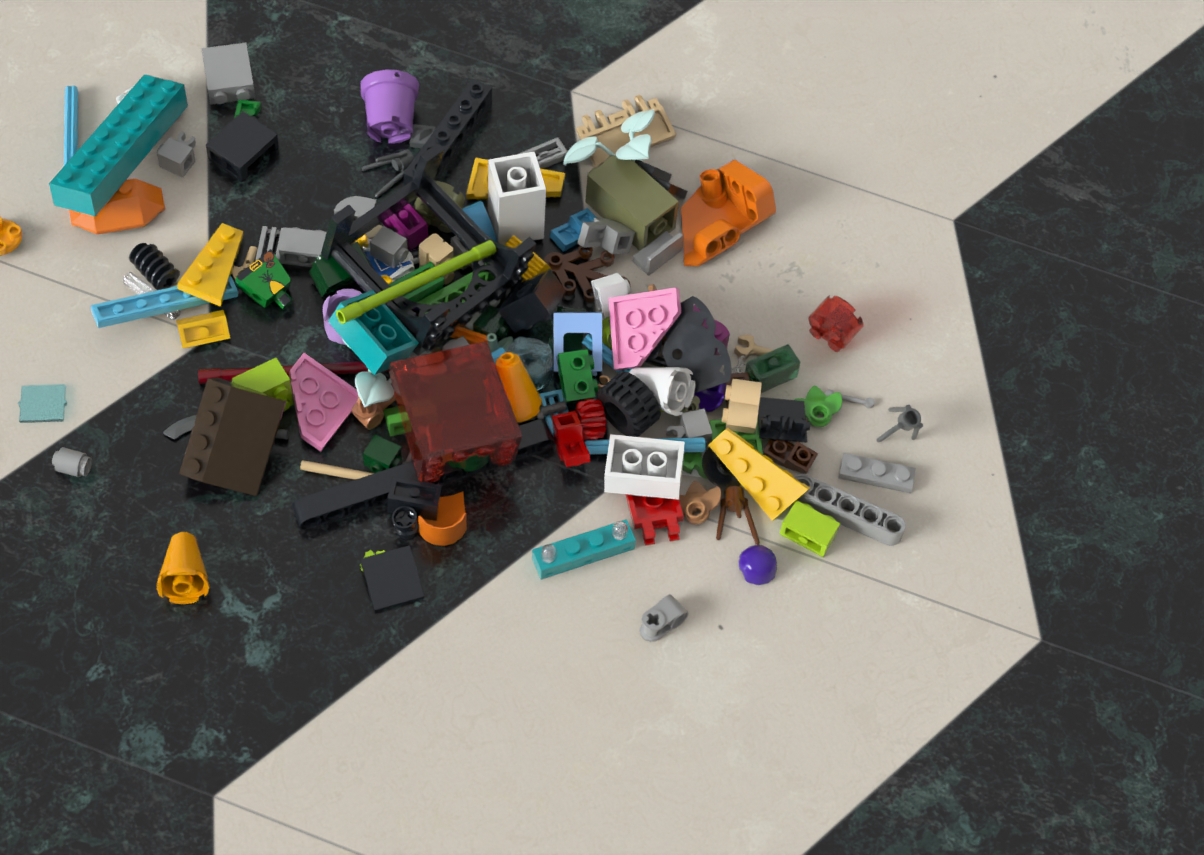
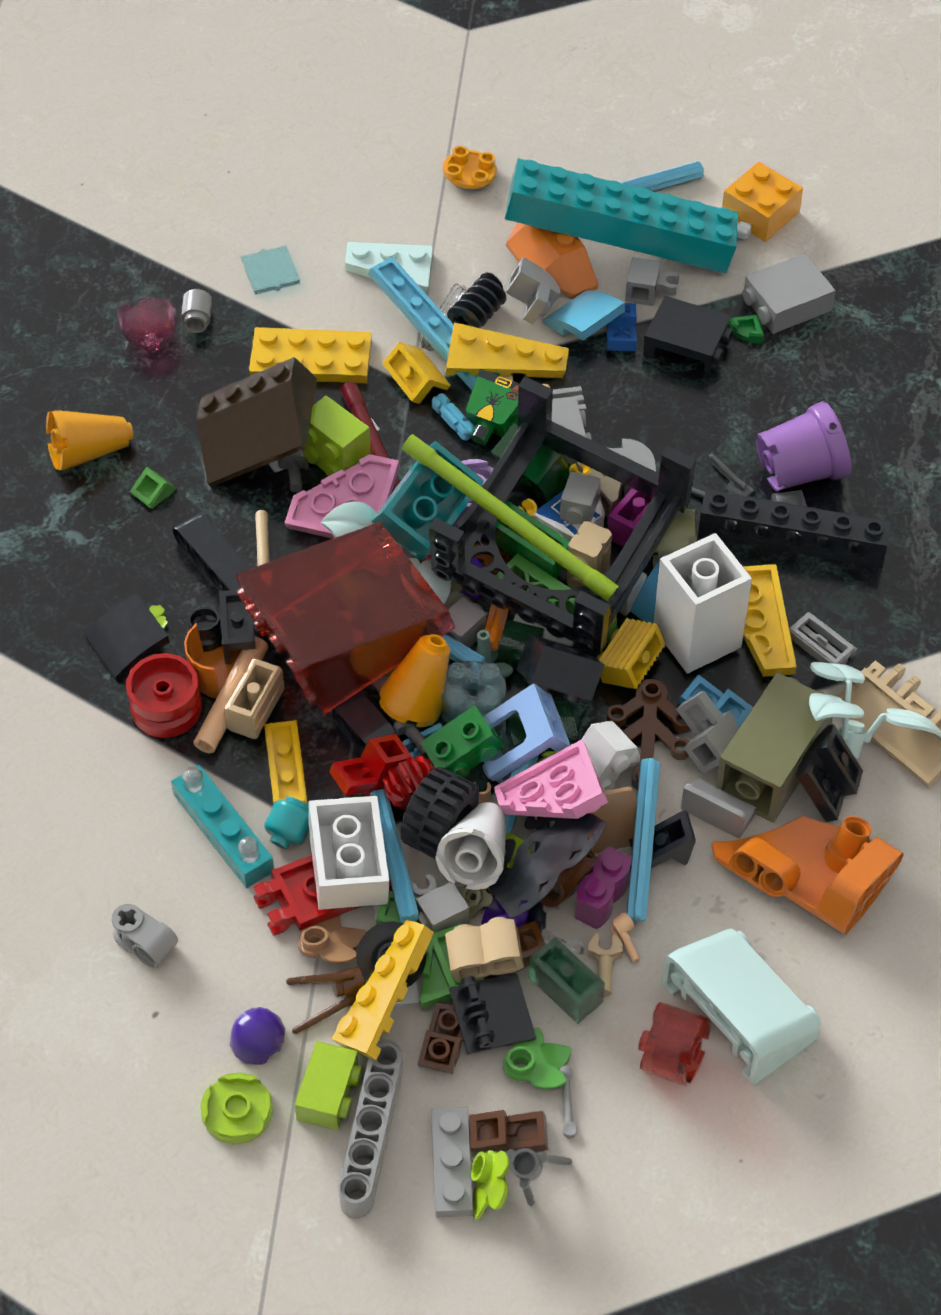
camera: 80 degrees right, 5 degrees down
(73, 317) = (412, 258): none -> light aqua wing
(78, 498) = (148, 323): none -> clear pink cylinder
(129, 58) = (763, 200): none -> light orange brick
(151, 395) = (325, 353): none -> yellow plate
(159, 224) = (534, 288): none -> light grey brick
(192, 202) = (585, 314): none -> medium azure slope
(208, 185) = (622, 330): none -> blue slope
(246, 535) = (151, 488): none -> bright green slope
(256, 315) = (452, 416): none -> medium azure axle
(462, 560) = (164, 695): none -> red wheel
(476, 523) = (215, 722): none -> light nougat piece
(485, 501) = (254, 698): none -> tan brick
(541, 500) = (285, 761): none -> yellow tile
(596, 505) = (288, 822): none -> teal head
(647, 279) = (643, 839): none -> medium azure axle
(684, 278) = (672, 839): none -> black slope
(735, 333) = (621, 926): none -> light nougat hand
(808, 278) = (743, 1000): none -> light aqua windscreen
(808, 589) = (236, 1108): none -> lime tile
(865, 434) = (501, 1132): none -> reddish brown slope
(907, 448) = (491, 1188): none -> lime plate

